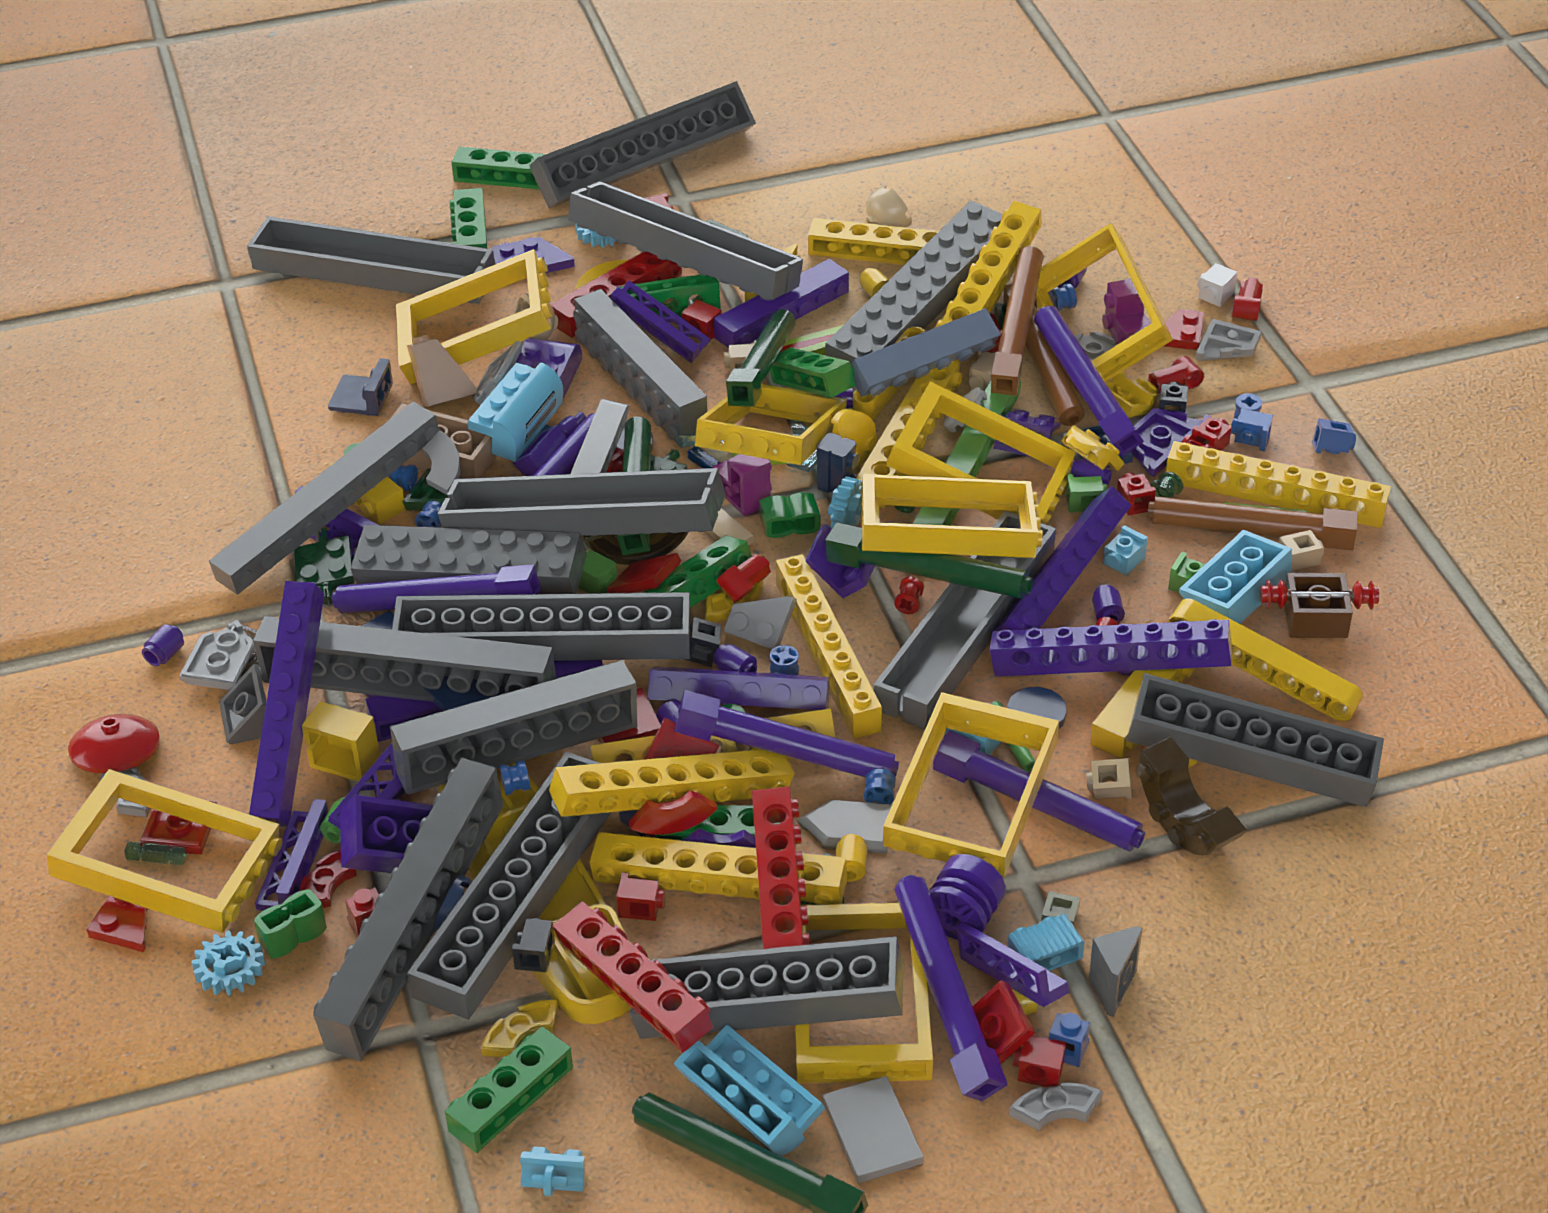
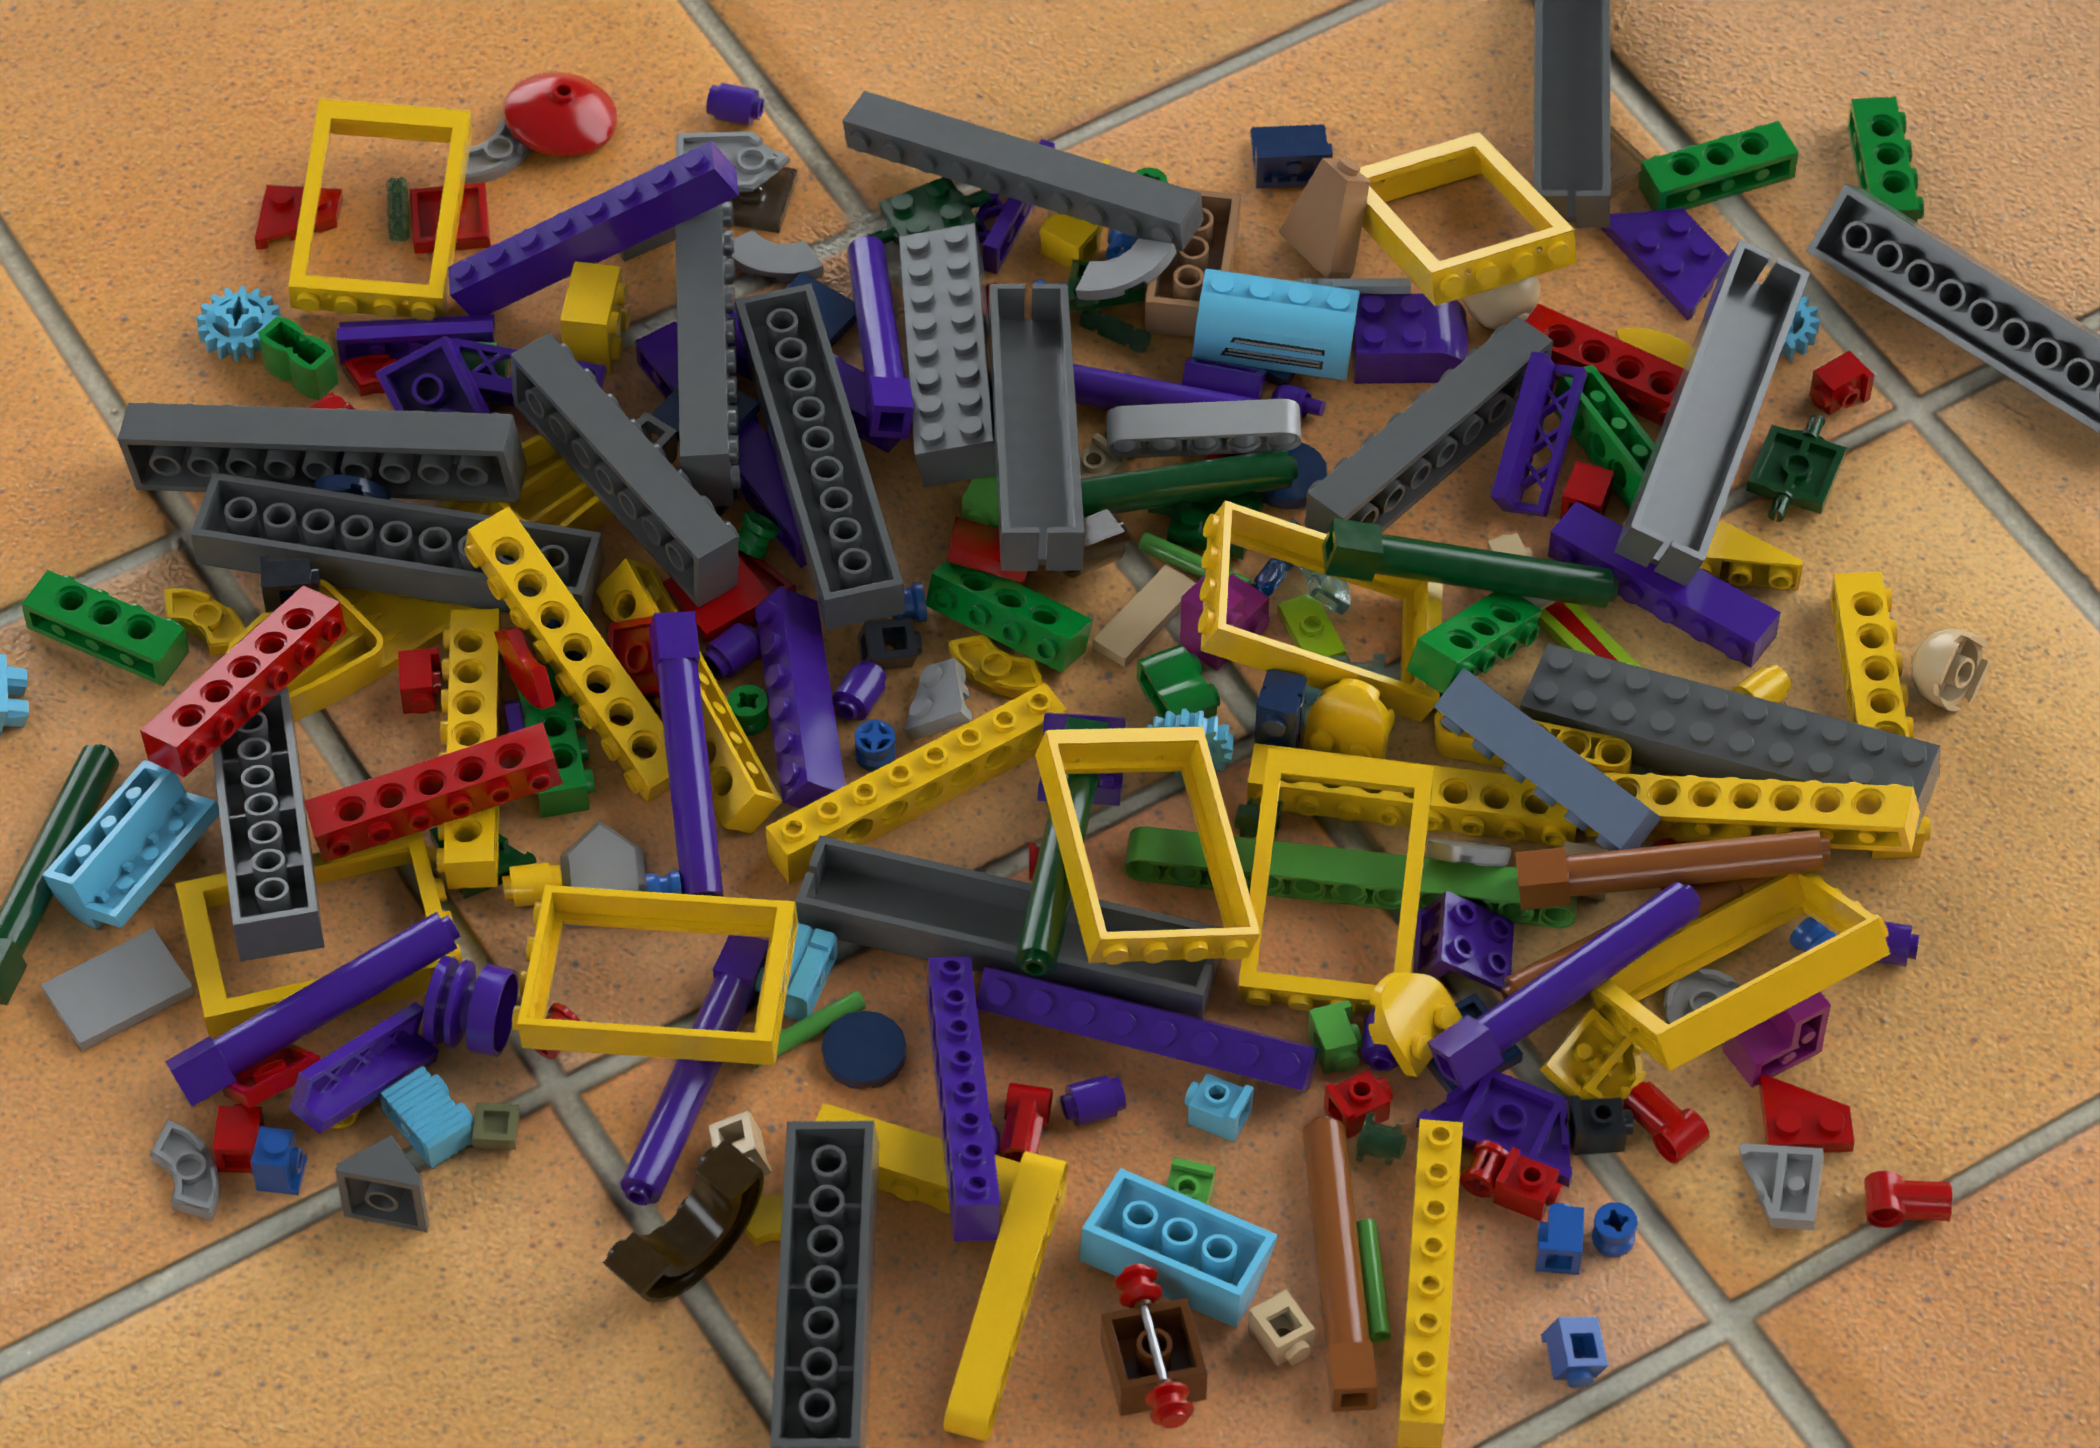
camera: 75 degrees right, 10 degrees up
(514, 777) = (554, 496): blue wheel -> none
(741, 579) = (1000, 653): red piece -> none
(1217, 284) = (1929, 1149): white brick -> none

